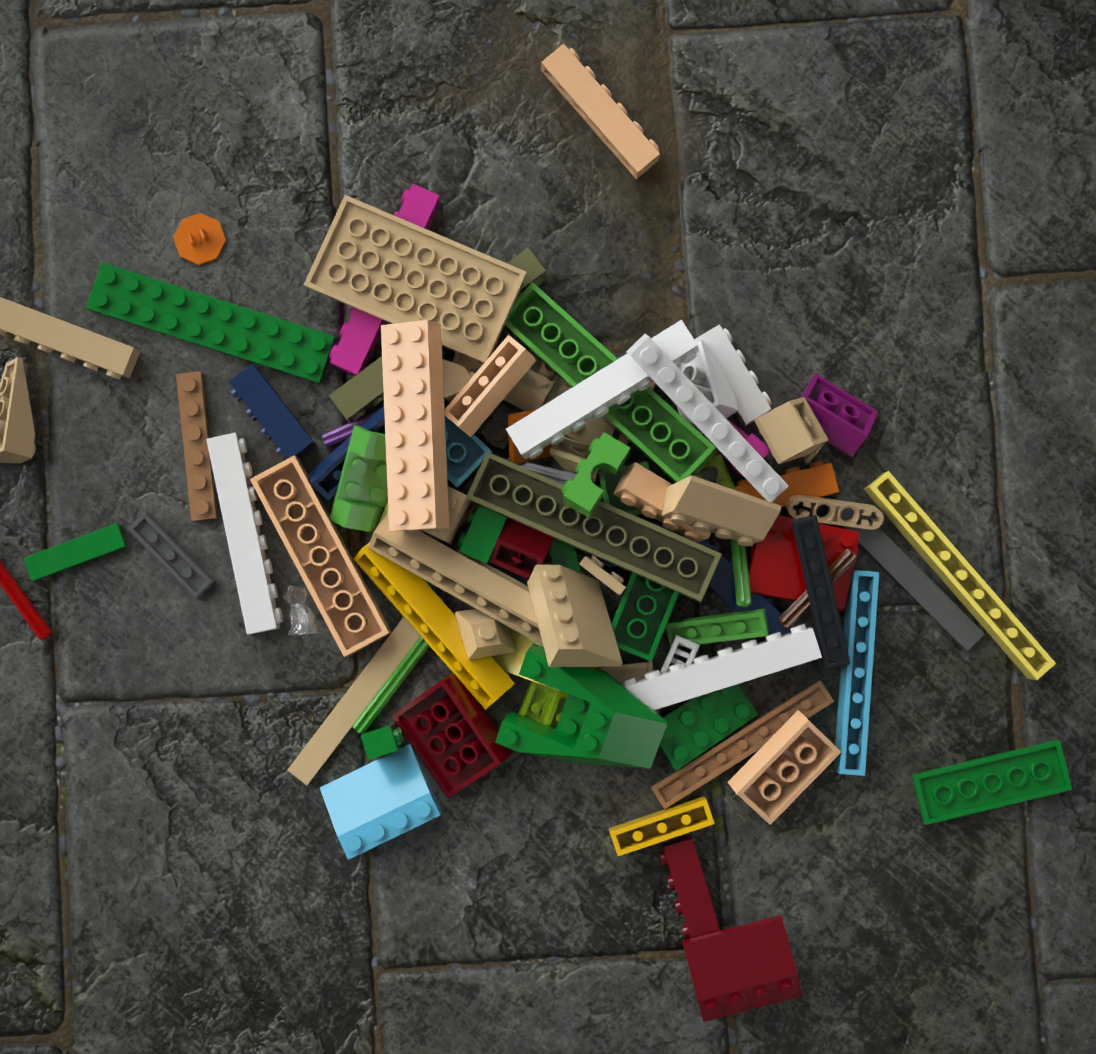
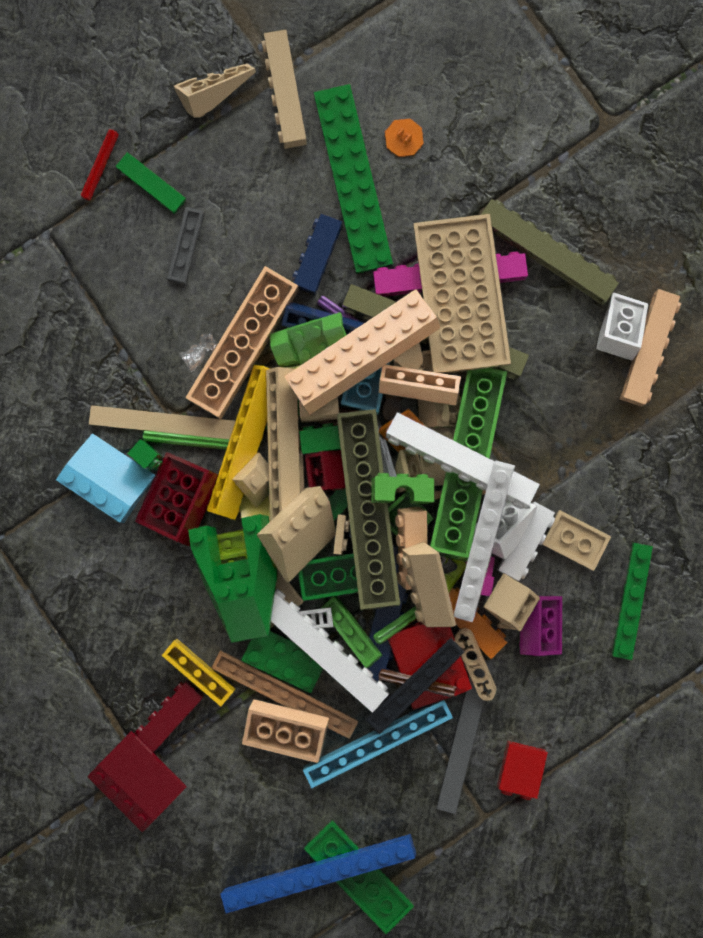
camera: 55 degrees right, 0 degrees up
(196, 452) = (266, 219): medium nougat plate -> none
(244, 534) = (228, 284): white brick -> none
(428, 156) = (550, 253): none -> olive brick
(559, 126) = (623, 327): none -> white slope
(763, 319) = (576, 540): none -> tan plate
(866, 300) = (632, 601): none -> green plate
(959, 576) = (483, 774): light yellow brick -> none
(963, 825) = (318, 873): none -> blue brick
(980, 531) = (522, 770): none -> red brick

